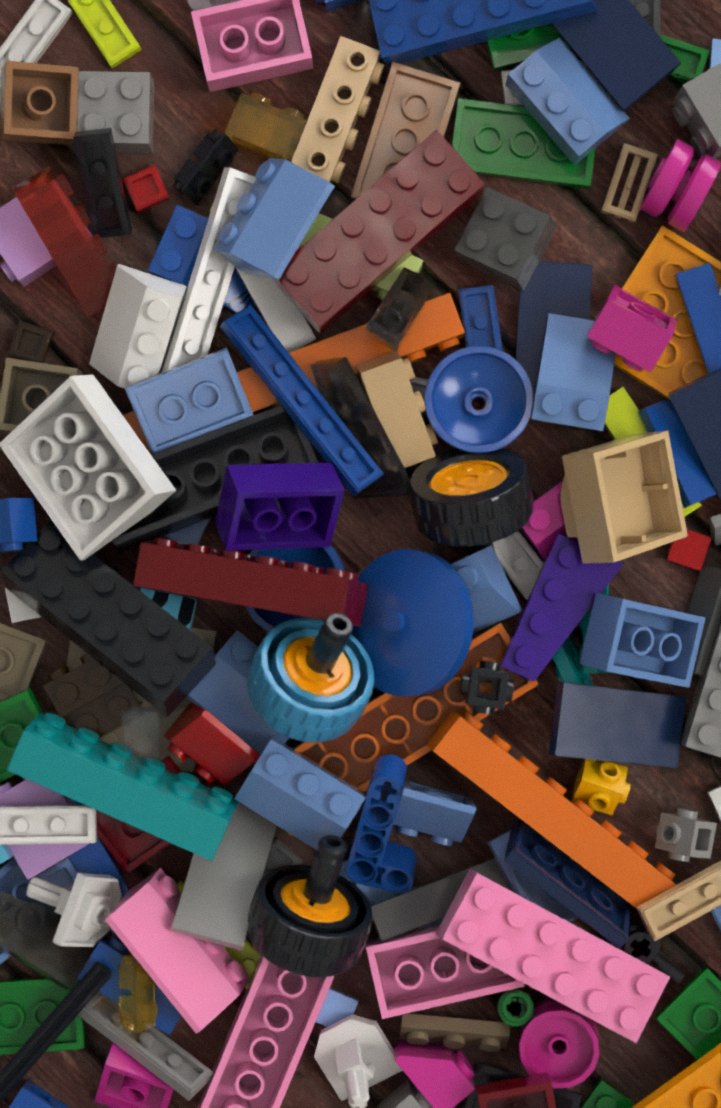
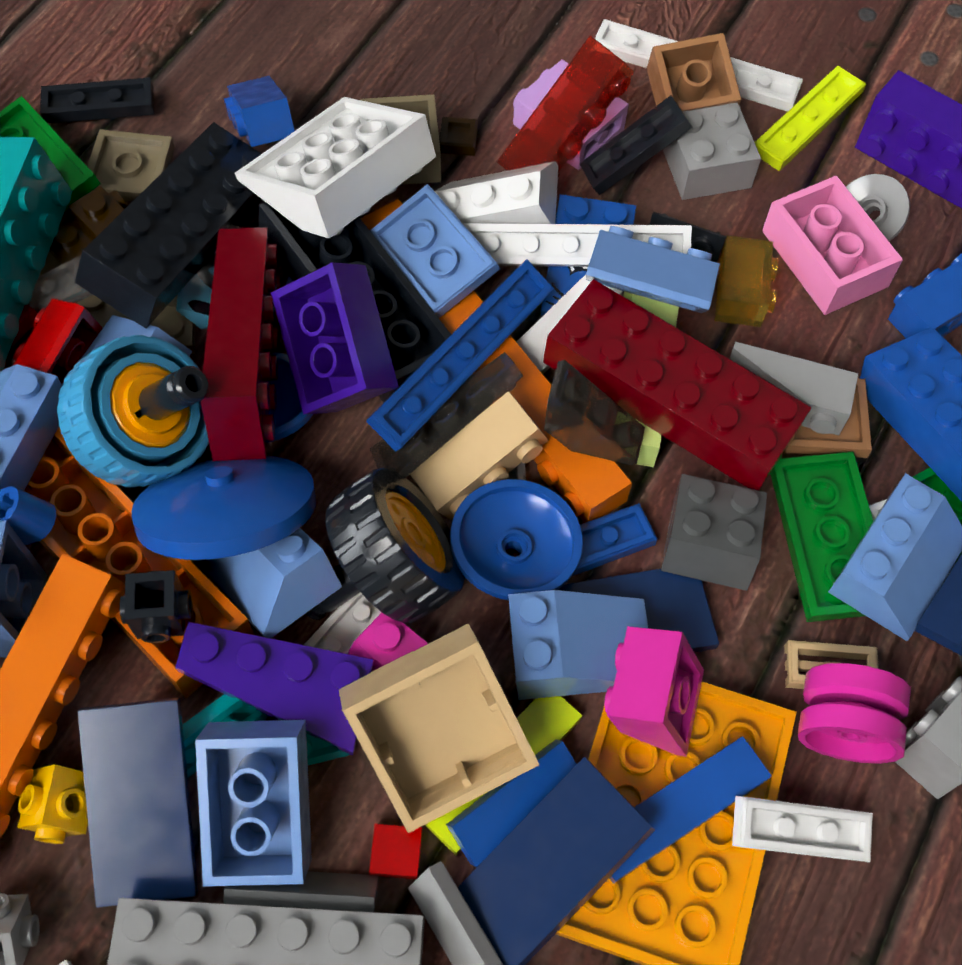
camera: 70 degrees right, 25 degrees down
(146, 188) = (646, 196): red tile -> none
(337, 108) = (801, 333): tan brick -> none
(400, 123) = (820, 386): none -> light grey slope

